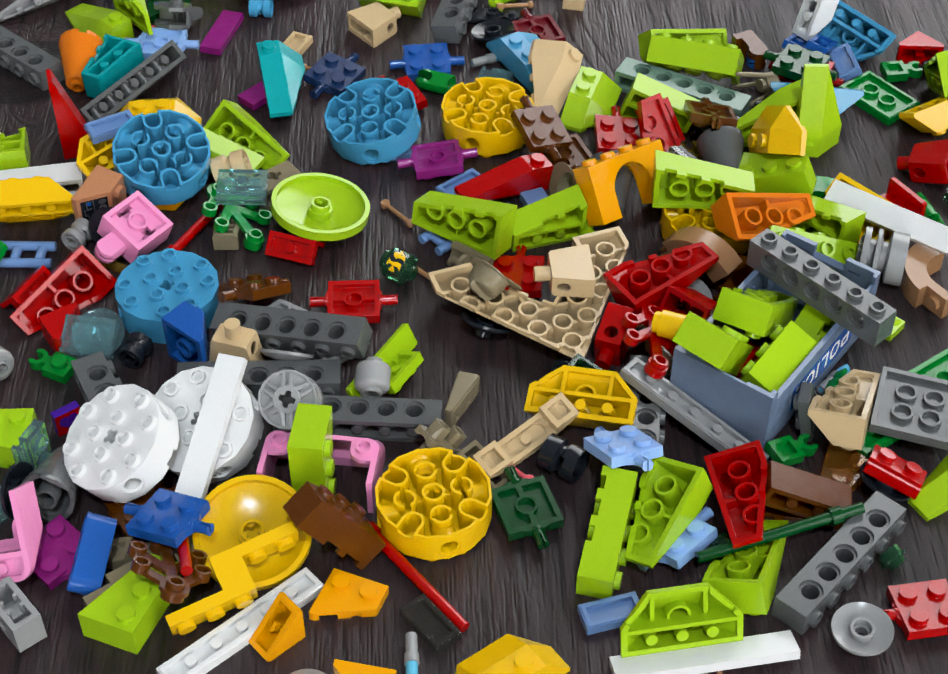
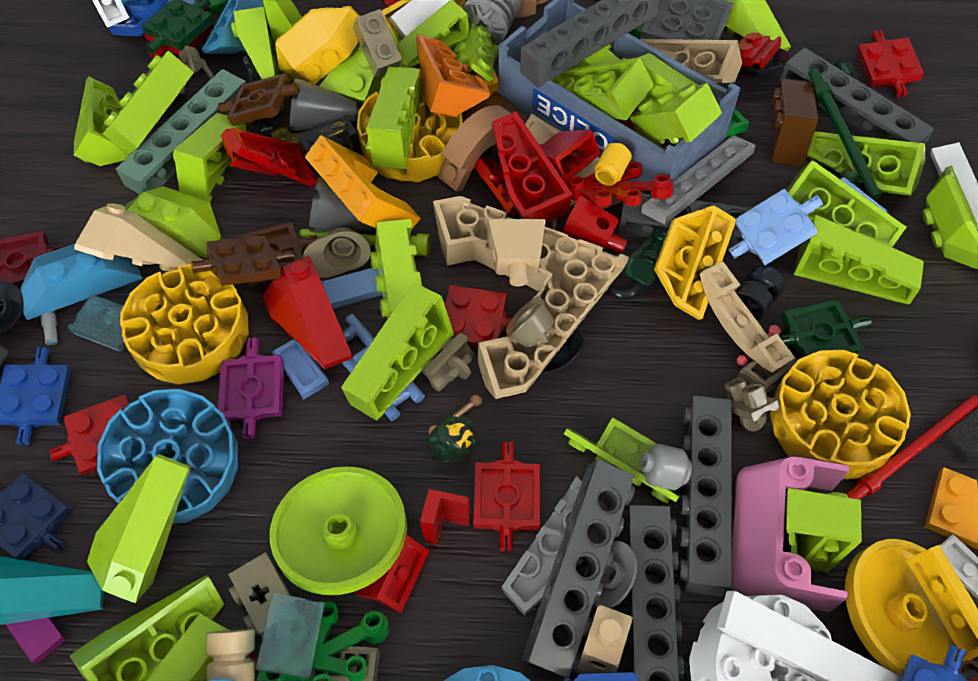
camera: 85 degrees left, 15 degrees up
(253, 288) = (493, 618): reddish brown plate -> none
(280, 385) = (743, 551): light grey wheel -> none
(309, 113) = (136, 532): none -> lime wedge
(329, 253) = (440, 508): none -> red panel
(335, 520) = (907, 510): reddish brown wedge -> none
(385, 204) = (318, 457): medium nougat hinge -> none
(435, 81) = (85, 383): green piece -> none
(462, 395) = (672, 383): dark tan slope -> none
(607, 612) = (936, 280): medium blue tile -> none
(615, 130) = (249, 198): plate -> none
(740, 489) = (788, 147): red wedge -> none
(751, 48) = (125, 64): leg -> none
(775, 159) = (377, 42): none -> dark tan brick
(843, 466) = (753, 92): clear orange wing -> none
(864, 619) = (925, 100): light grey dish -> none

